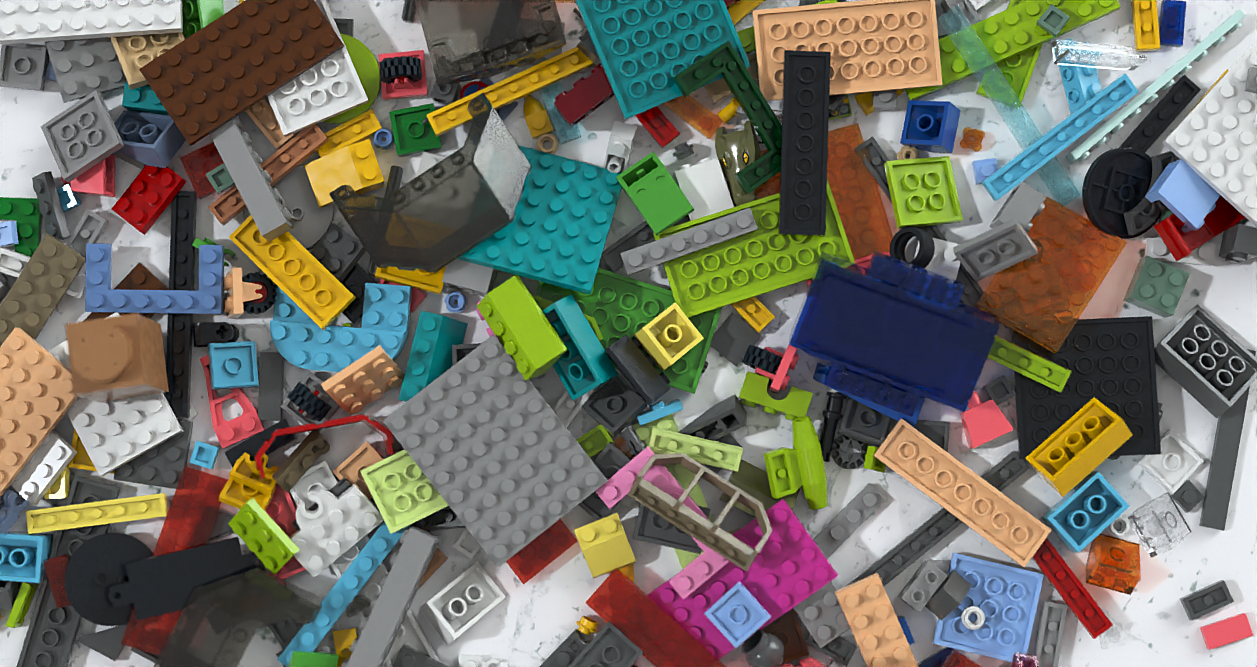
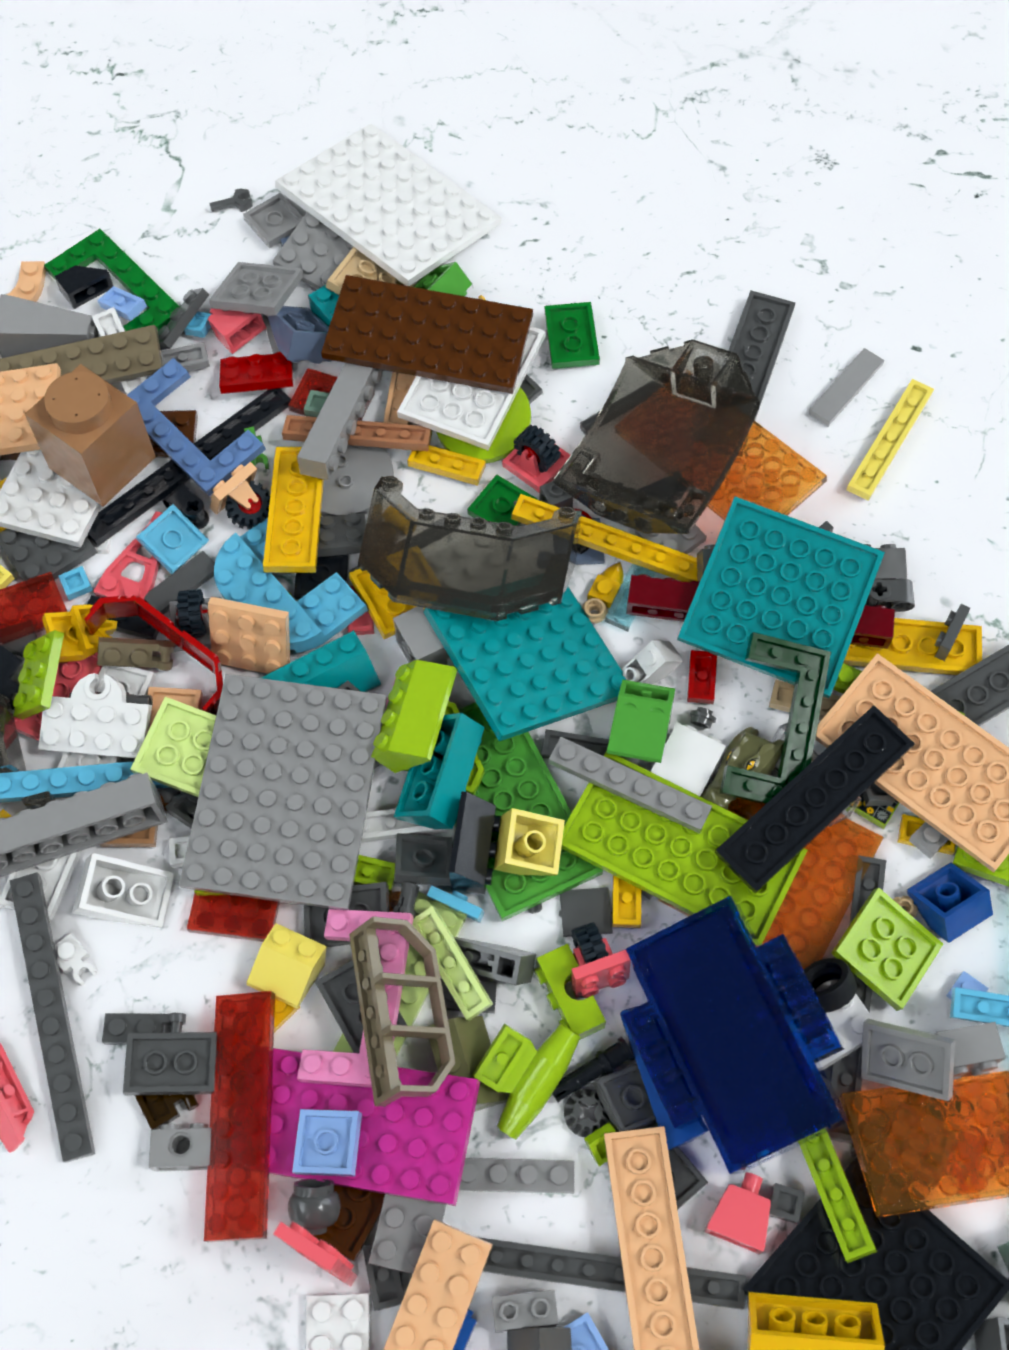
camera: 45 degrees right, 20 degrees down
(349, 166) = (423, 481): yellow slope -> none
(384, 145) = (466, 487): medium blue plate -> none
(450, 298) = (385, 652): light blue plate -> none
(587, 625) = (197, 1020): yellow plate -> none
(694, 114) = (742, 695): clear orange plate -> none
(729, 111) = (771, 724): yellow pin -> none
(978, 136) = (989, 952): clear orange plate -> none

